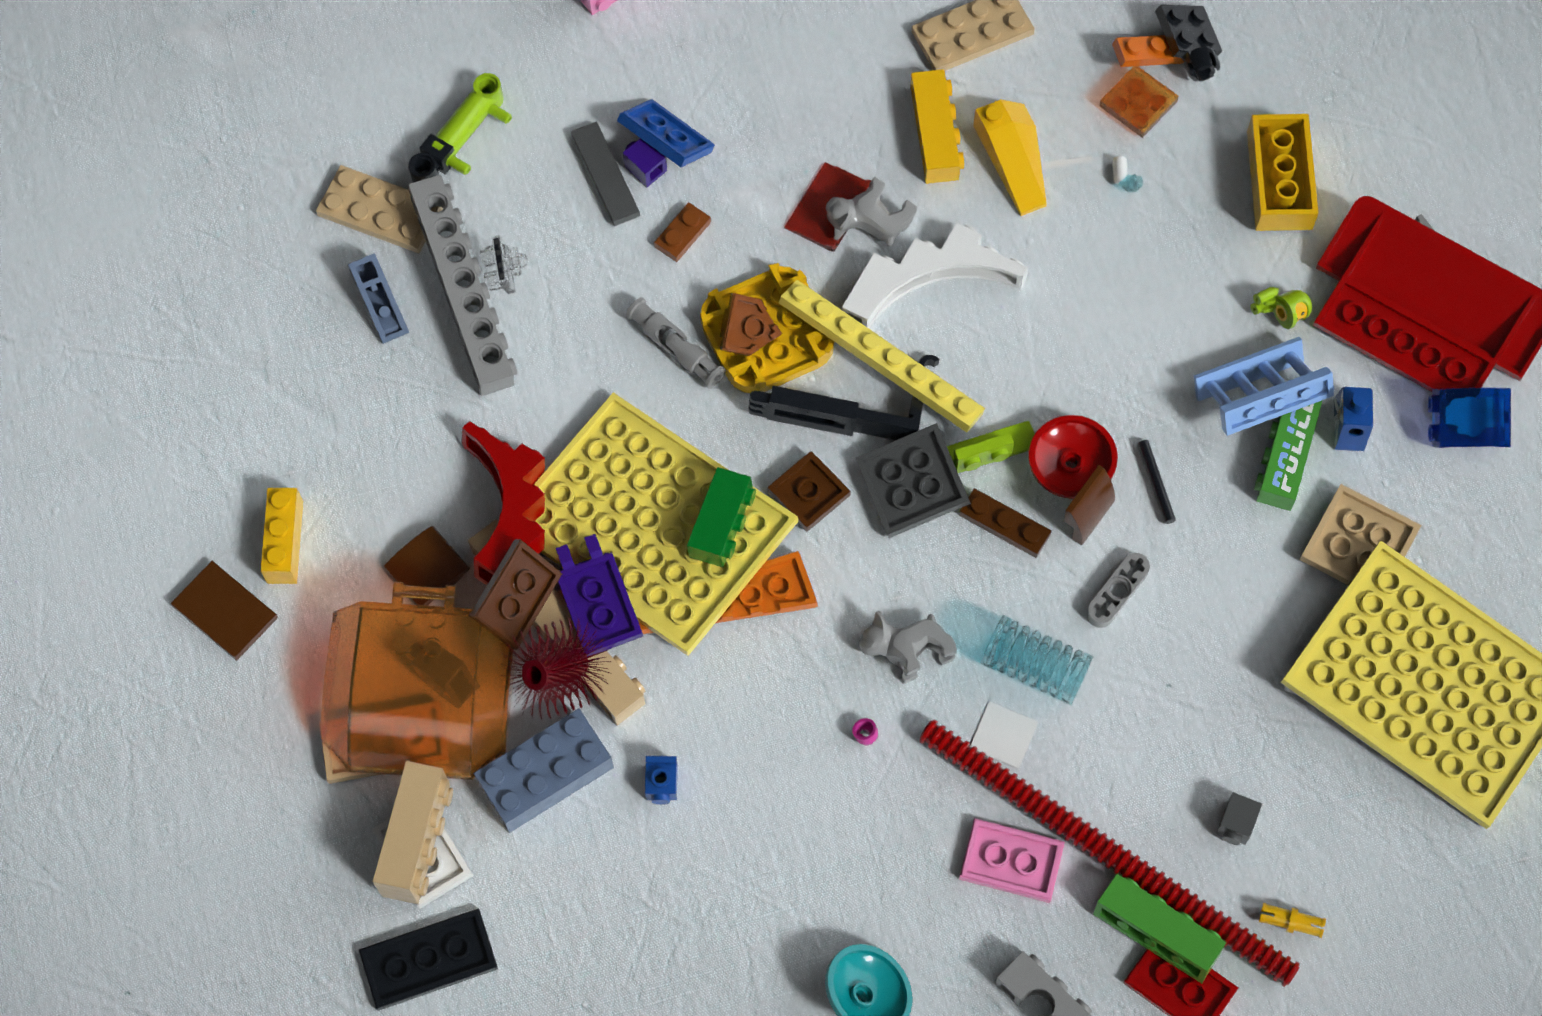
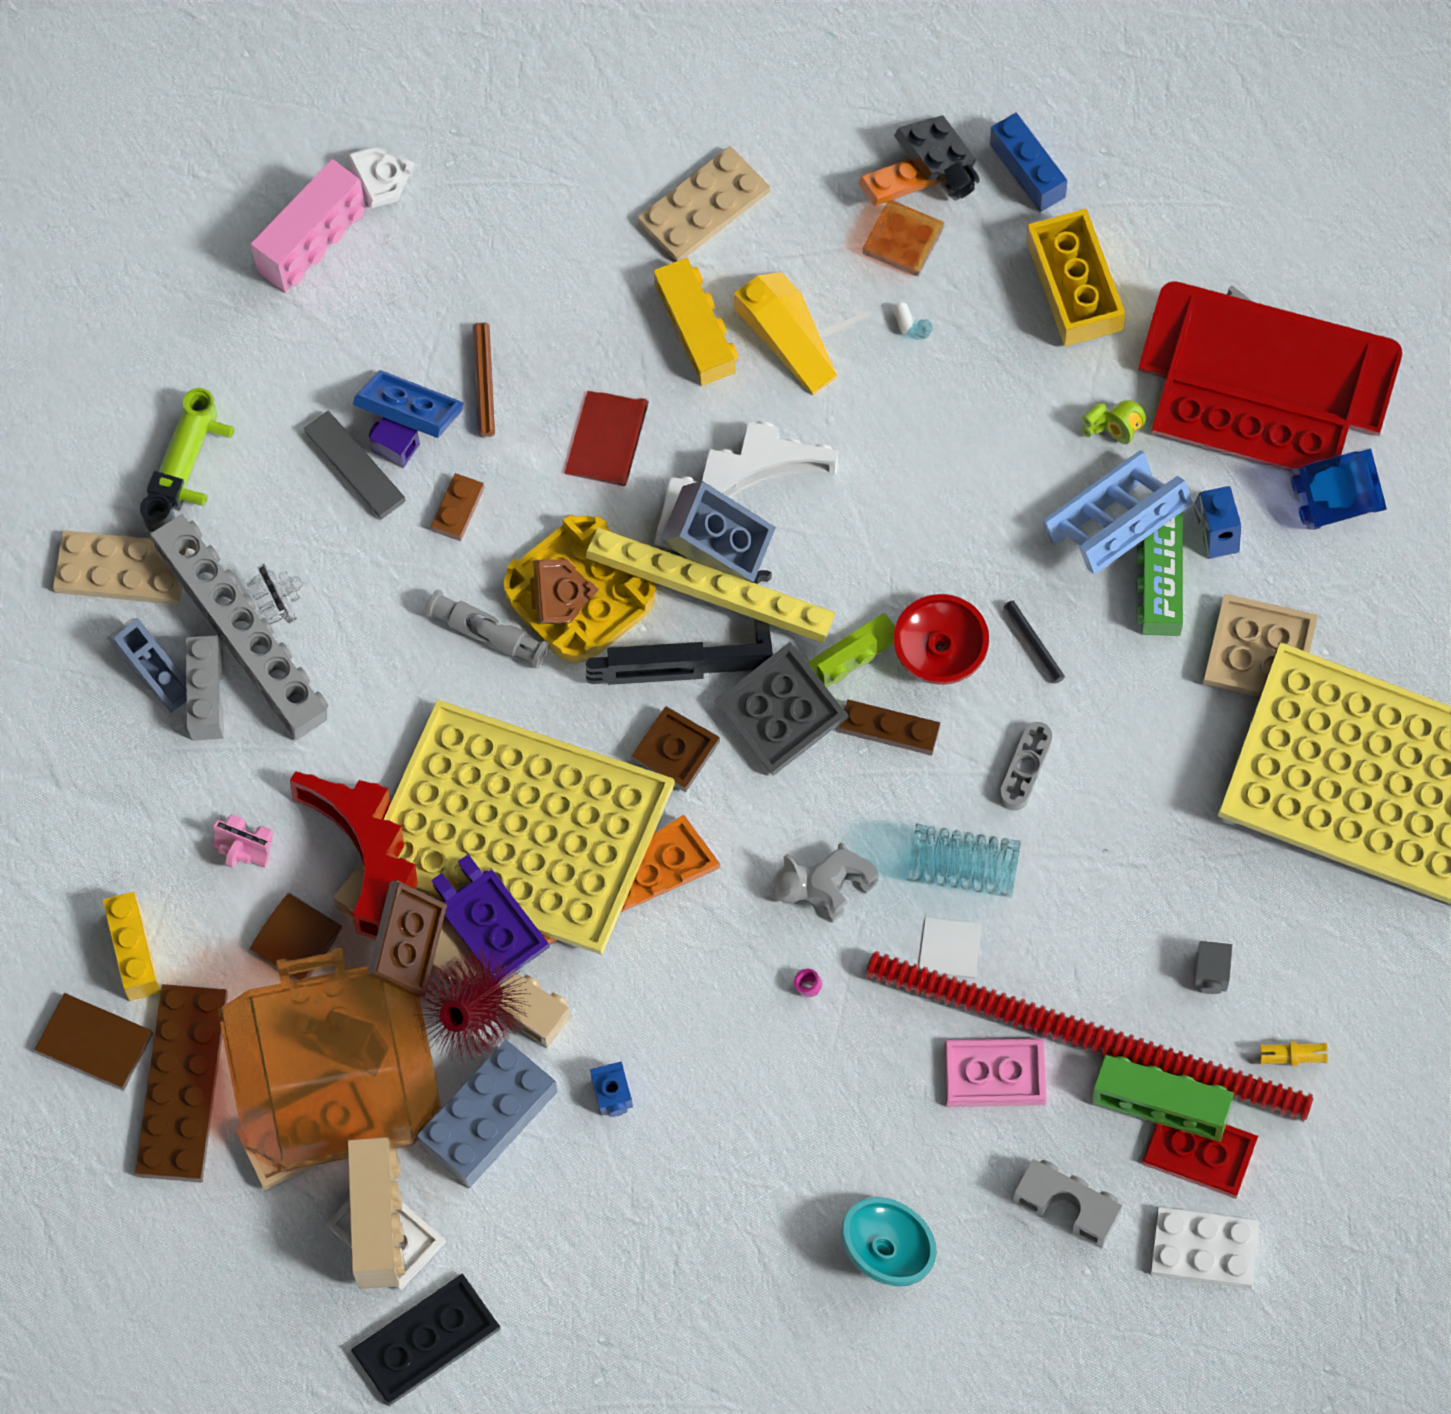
camera: 15 degrees left, 0 degrees up
(286, 670) = (181, 1084): none -> reddish brown plate
(403, 473) = (242, 845): none -> bright pink hips
(410, 341) = (203, 679): none -> light grey arch
(721, 517) = (595, 801): green brick -> none
(738, 130) = (483, 380): none -> dark orange axle
(869, 214) = (653, 436): light grey animal -> none
(900, 310) = (717, 531): none -> sand blue brick
(1090, 505) = (973, 685): reddish brown slope -> none
(1267, 63) = (1028, 162): none -> blue brick

